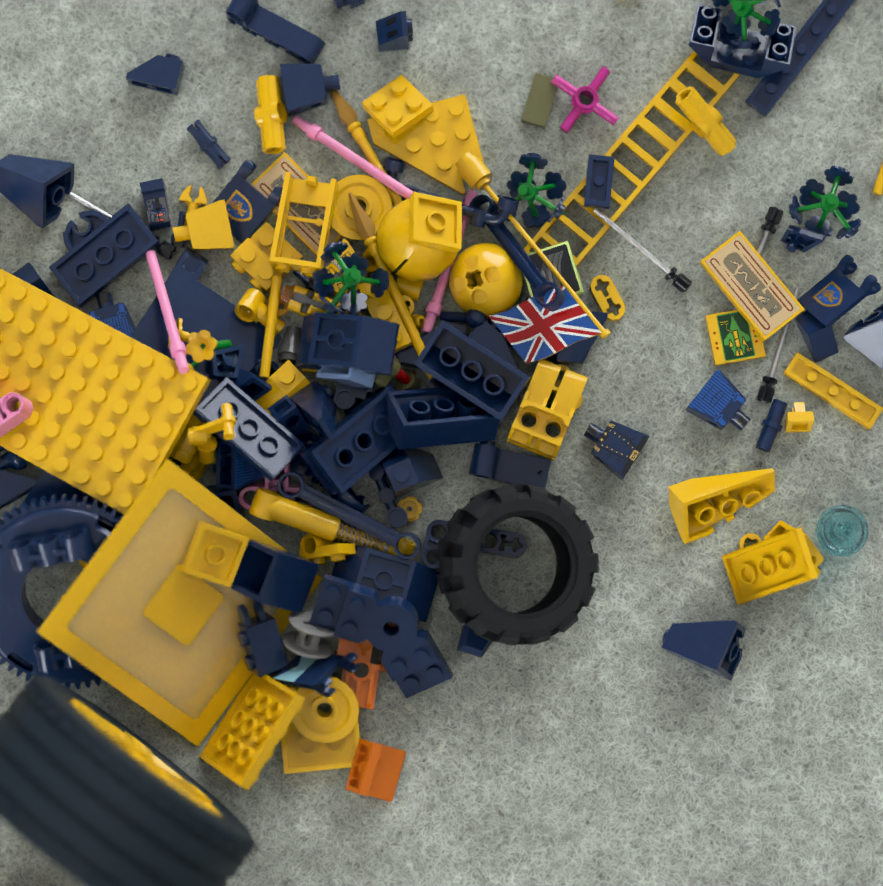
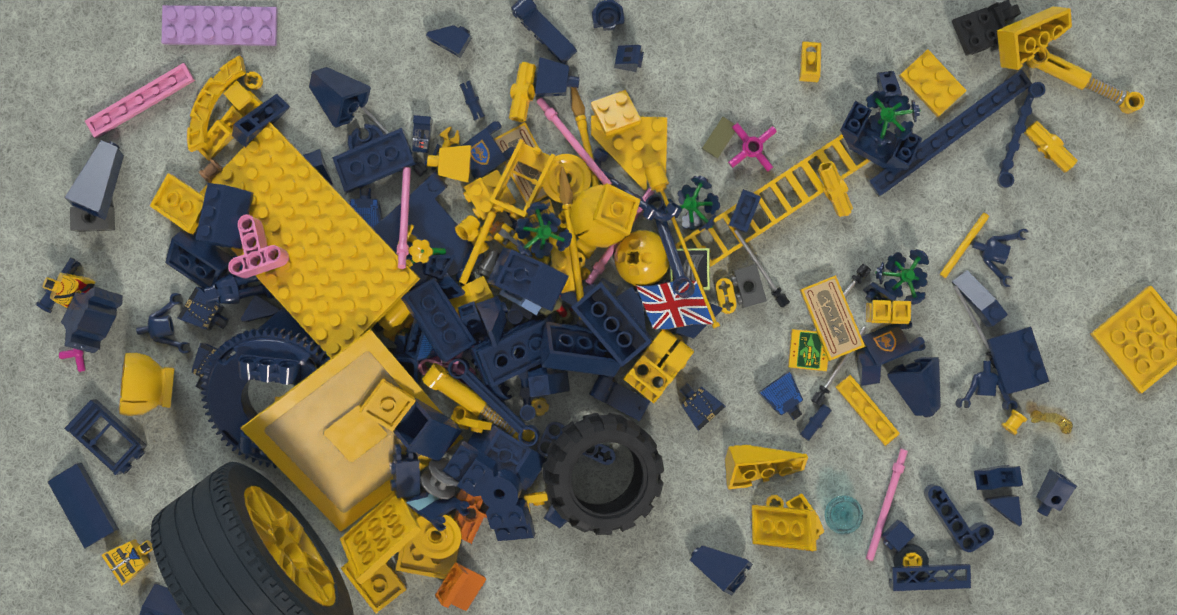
camera: 15 degrees right, 5 degrees up
(202, 437) = (405, 317): yellow pin -> none
(207, 476) = (401, 340): none -> dark blue plate
(266, 803) = (380, 588): none -> yellow plate
(441, 627) = (536, 498): none -> yellow bracket
(473, 317) = (624, 283): dark blue bar -> none
(632, 261) = (751, 275): none -> dark grey brick
(799, 419) = (837, 424): yellow tile -> none
(816, 258) = (884, 312): none -> yellow hips

